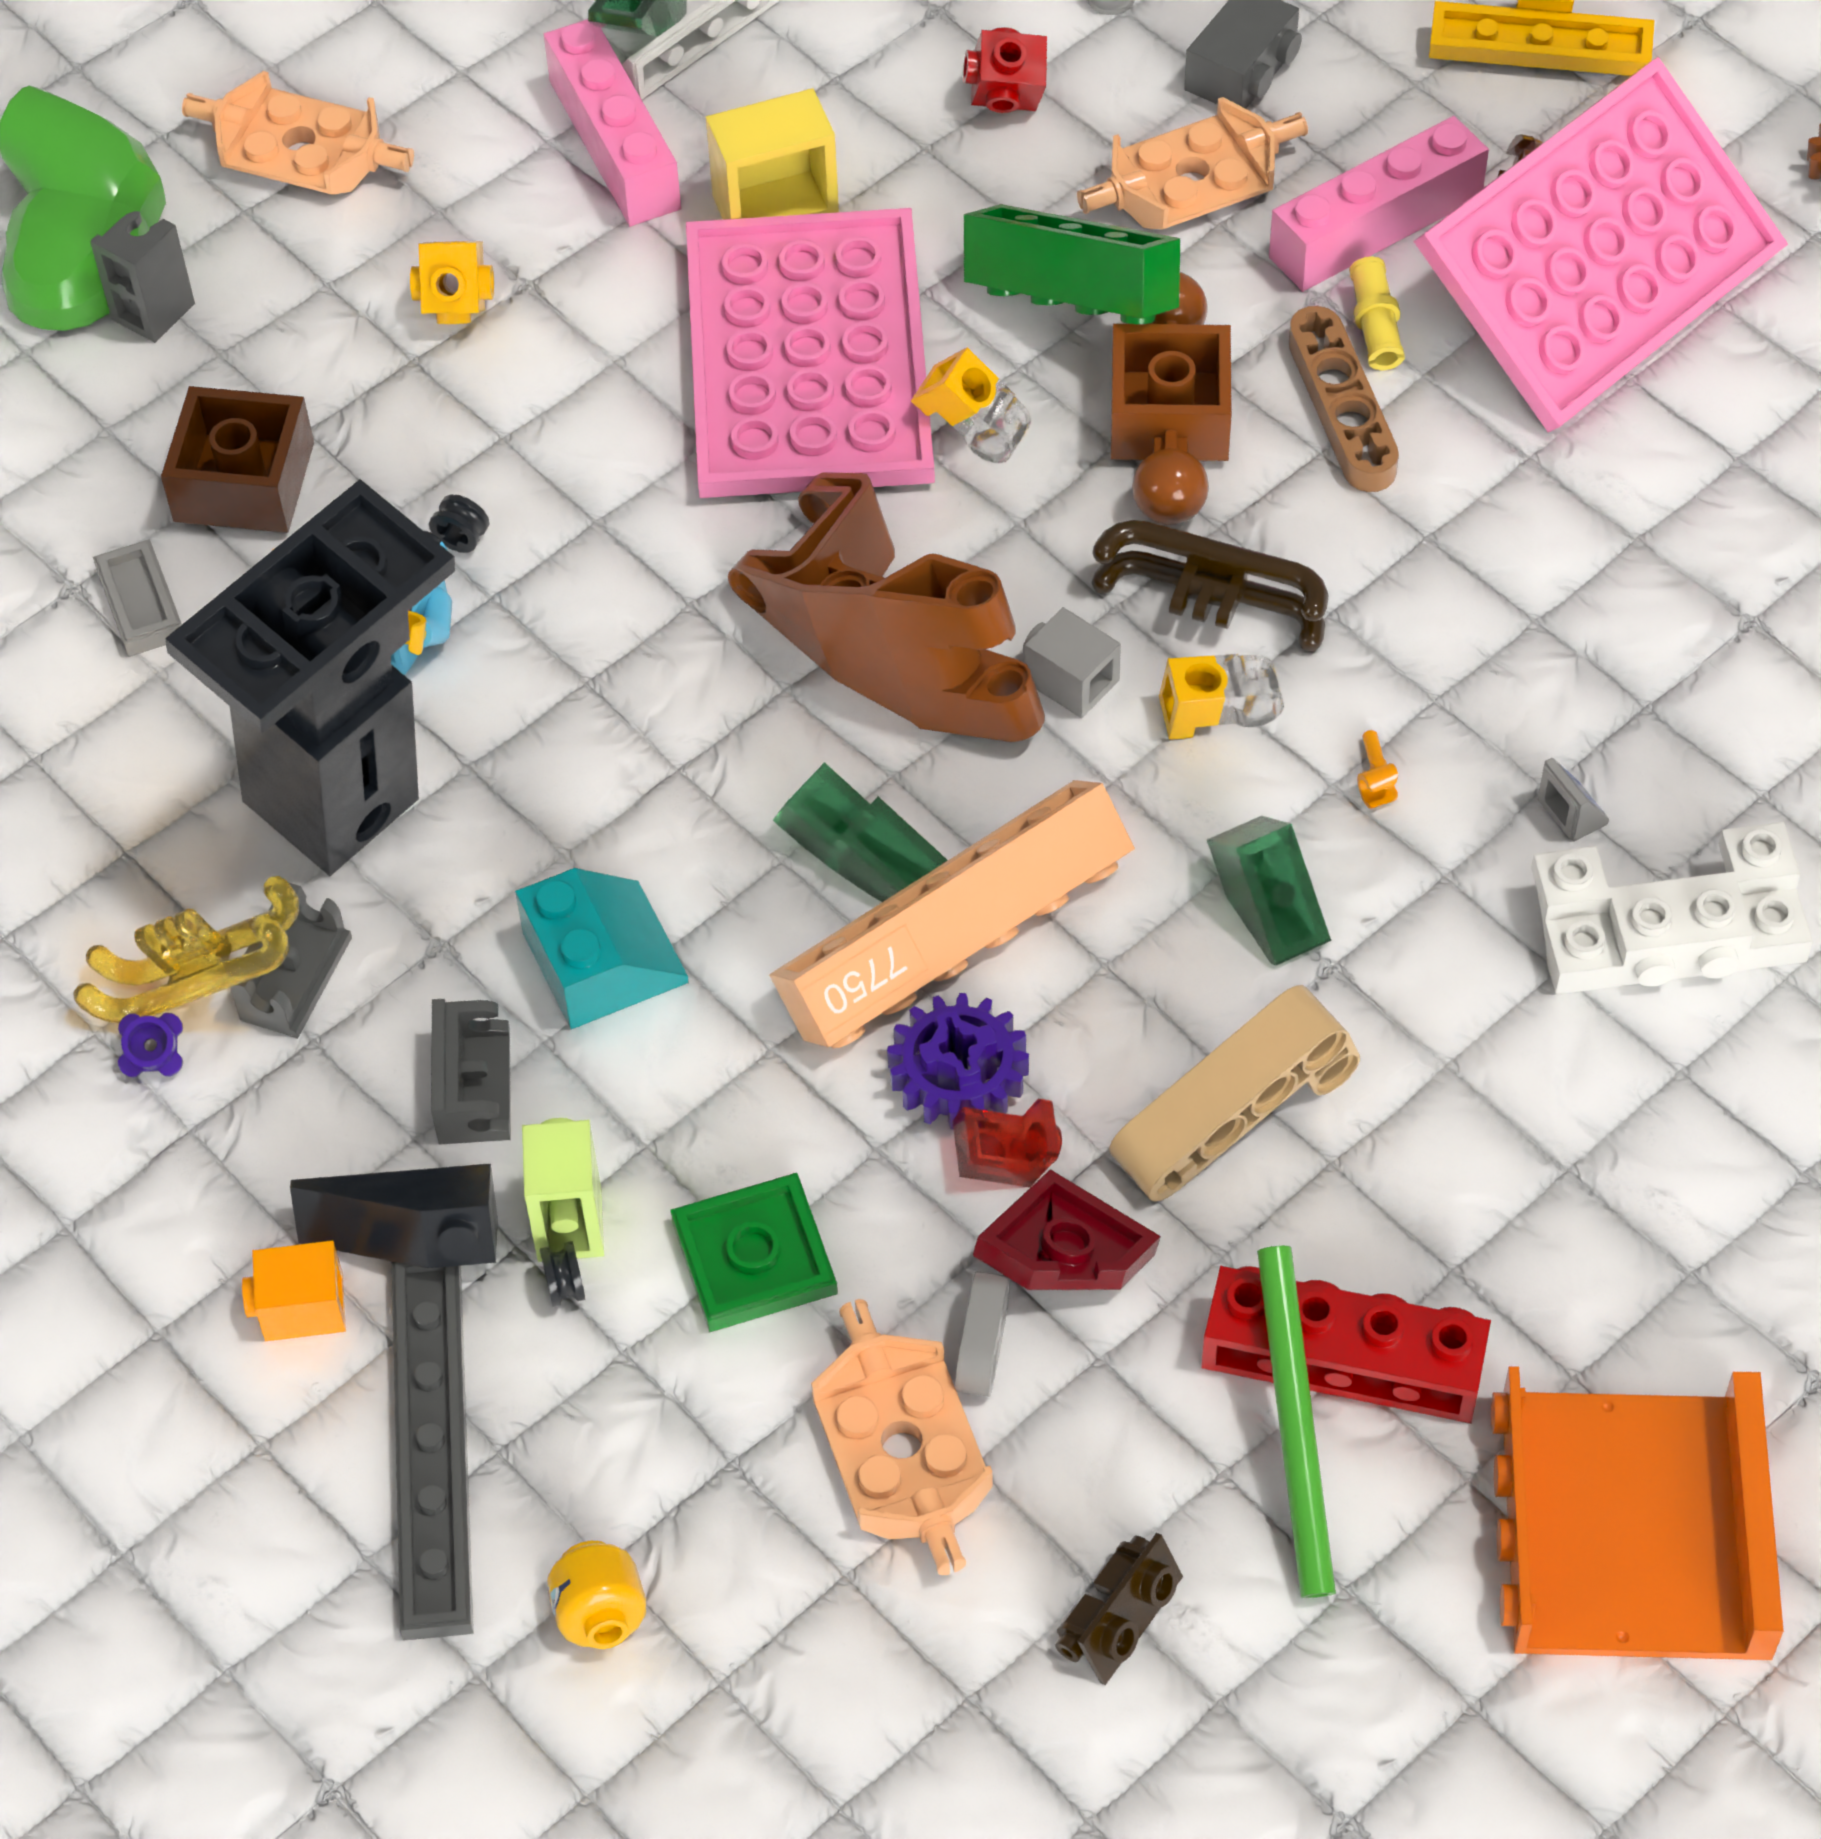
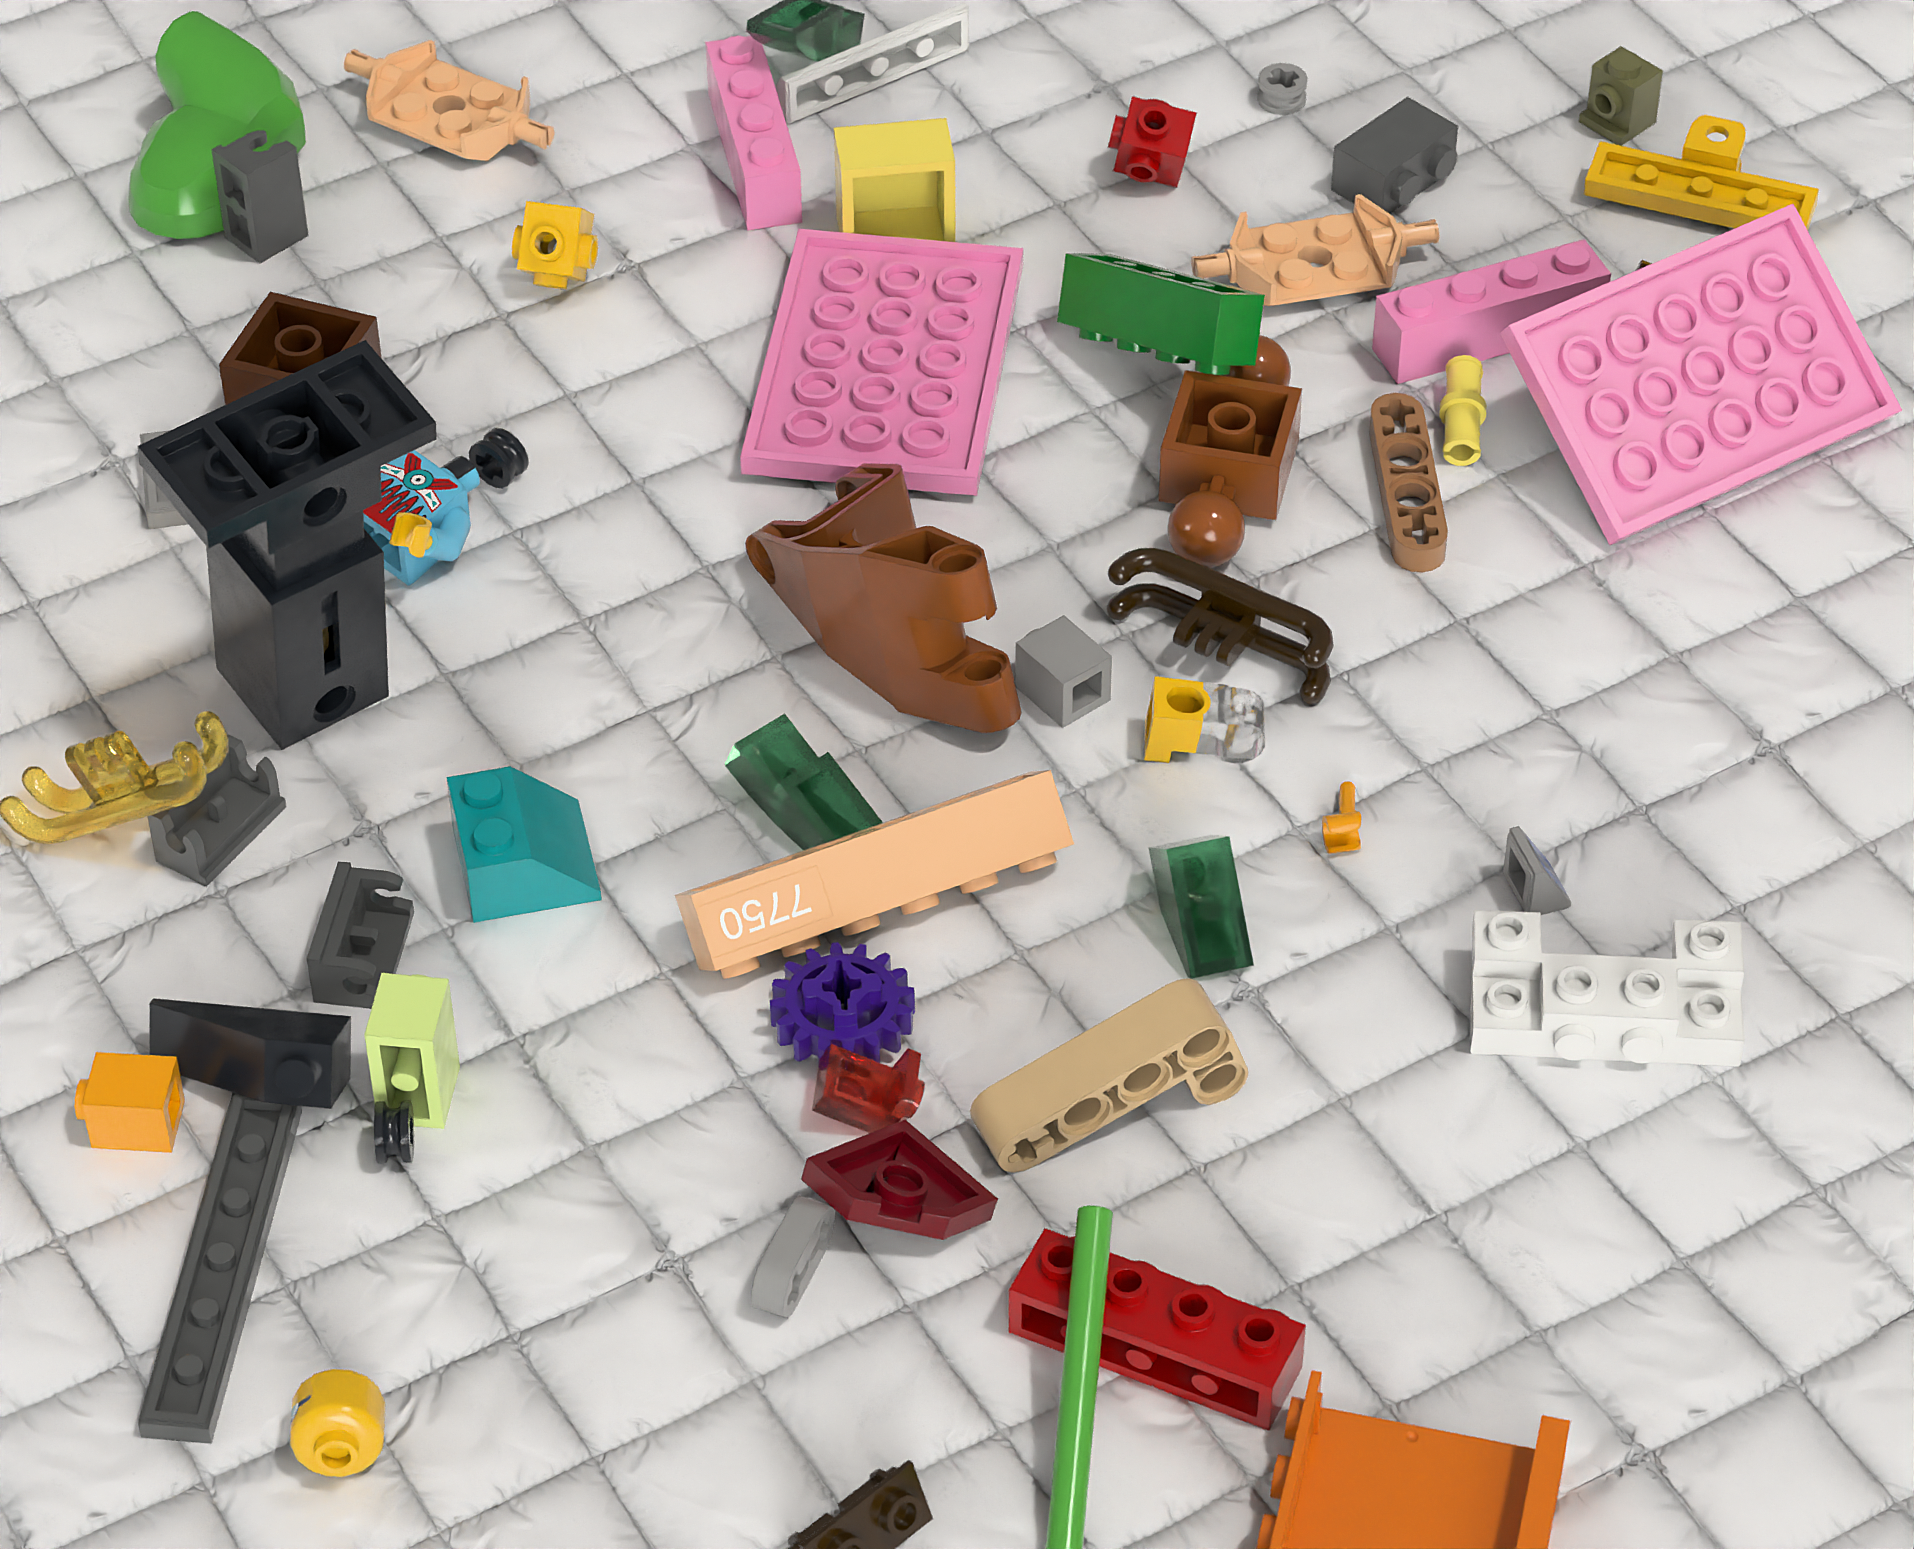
camera: 10 degrees right, 10 degrees down
(135, 1033) = (47, 851): dark purple plate -> none
(753, 1252) = (590, 1148): green tile -> none
(893, 1388) = (676, 1292): light nougat plate -> none
(975, 405) = (1033, 429): leg -> none

